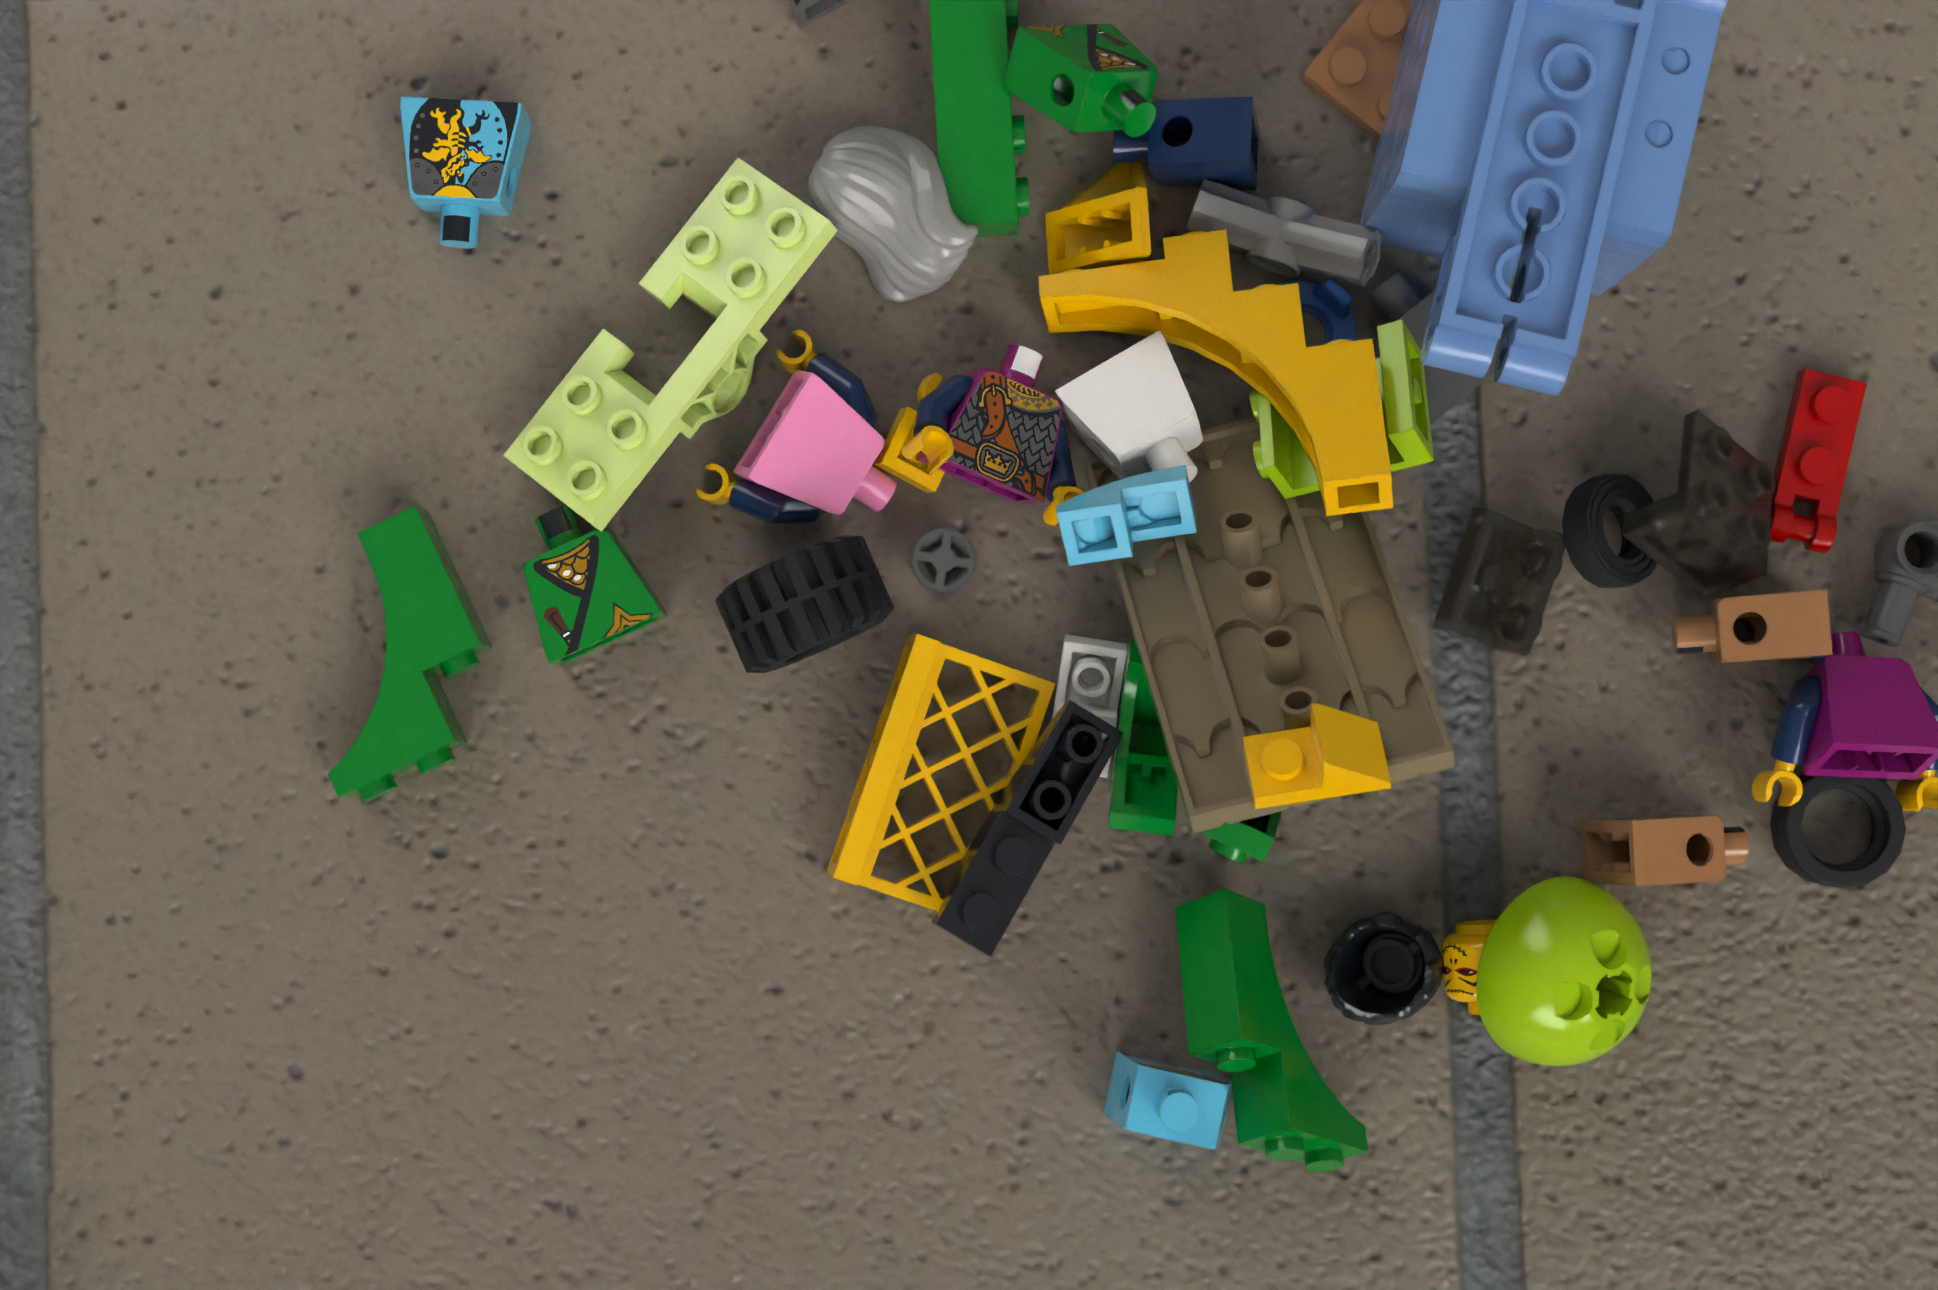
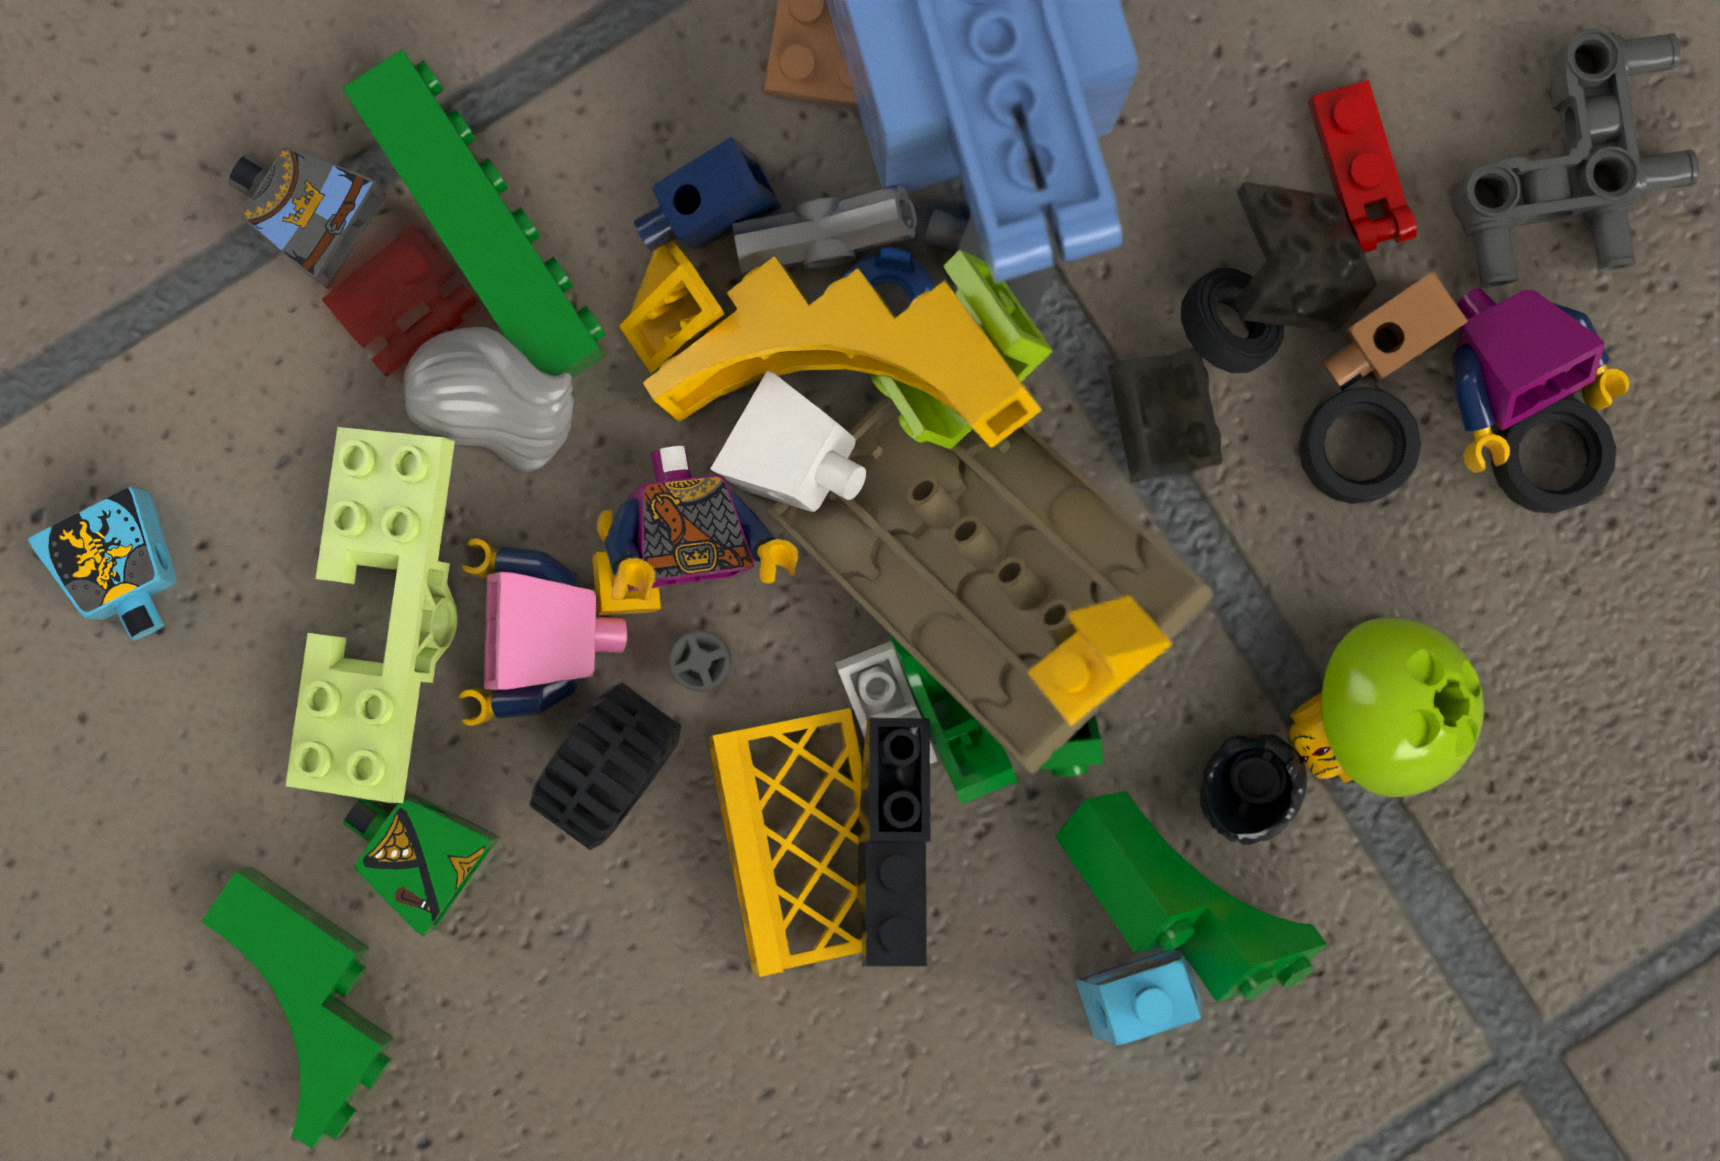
camera: 30 degrees left, 0 degrees up
(859, 59) = (389, 288): none -> clear red plate
(1083, 77) = (584, 199): green torso -> none
(1129, 510) = (818, 546): medium azure slope -> none
(1660, 849) = (1421, 558): medium nougat torso -> none
(1712, 714) = (1405, 439): none -> black tyre

